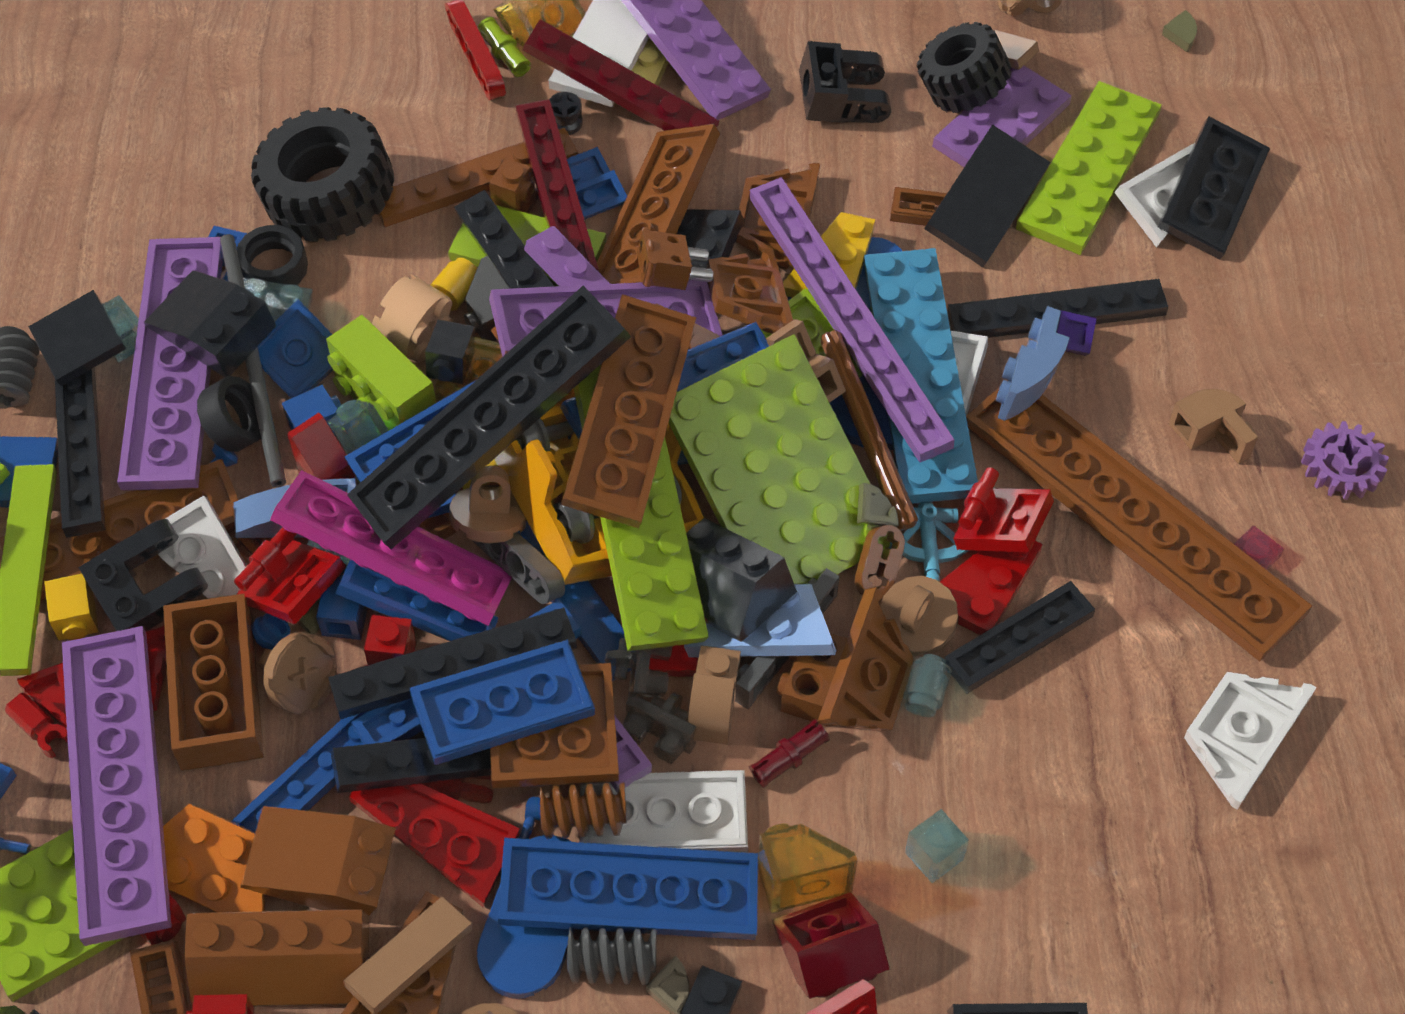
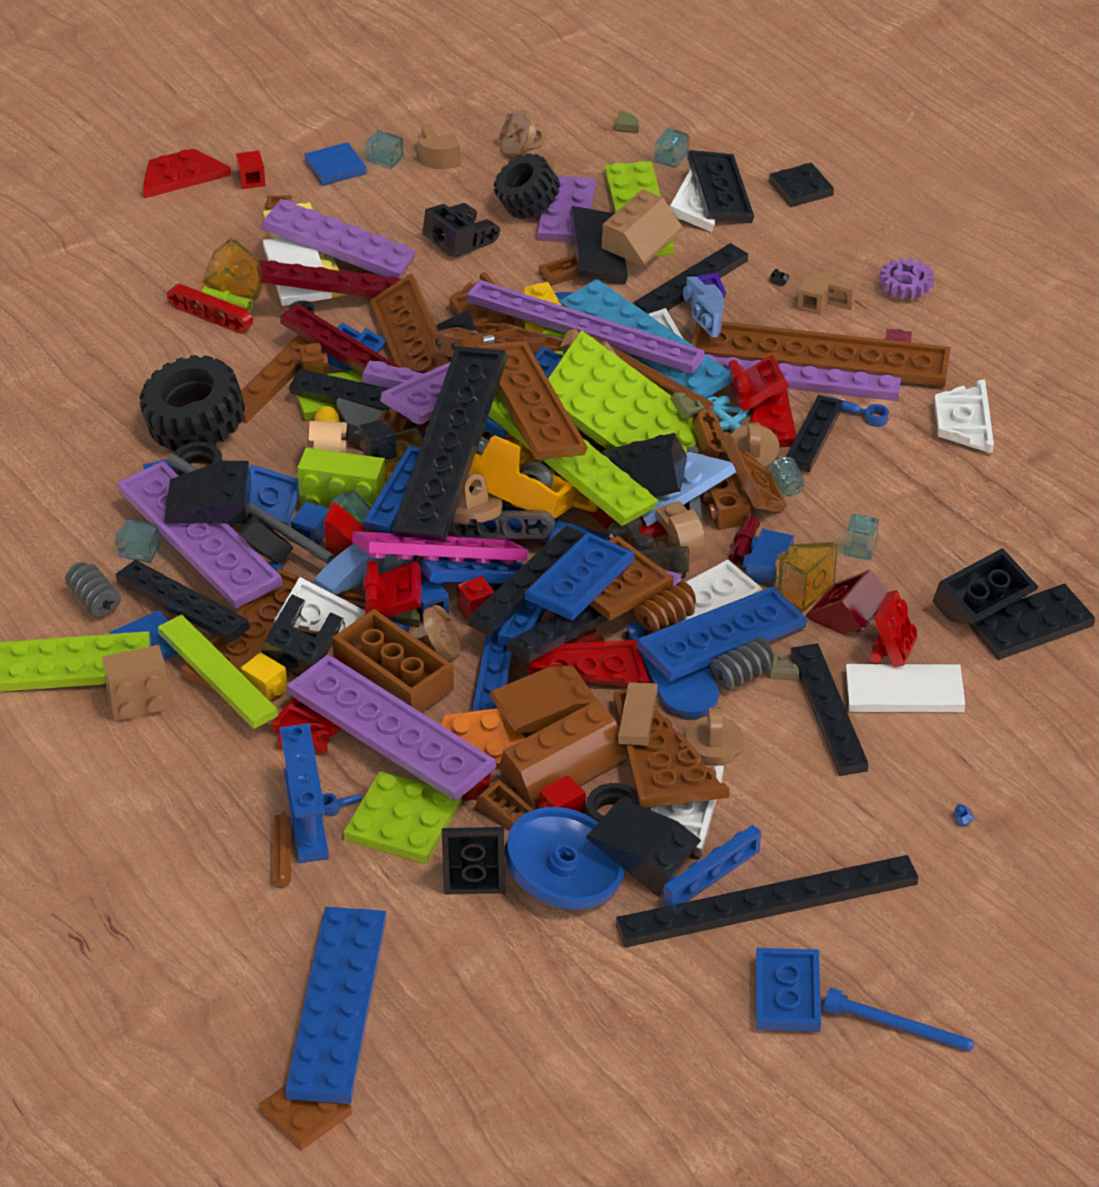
camera: 35 degrees left, 15 degrees down
(77, 337) = (126, 549): black tile -> none
(800, 796) = (765, 551): none -> blue brick
(1048, 202) = (640, 228): none -> medium nougat slope
(1096, 549) = (831, 381): none -> medium lavender plate
(1109, 627) = (868, 412): none -> blue piece
(1181, 364) = (778, 277): none -> black rock
(1202, 97) = (671, 147): none -> clear light blue brick
(1329, 236) = (801, 184): none -> black plate

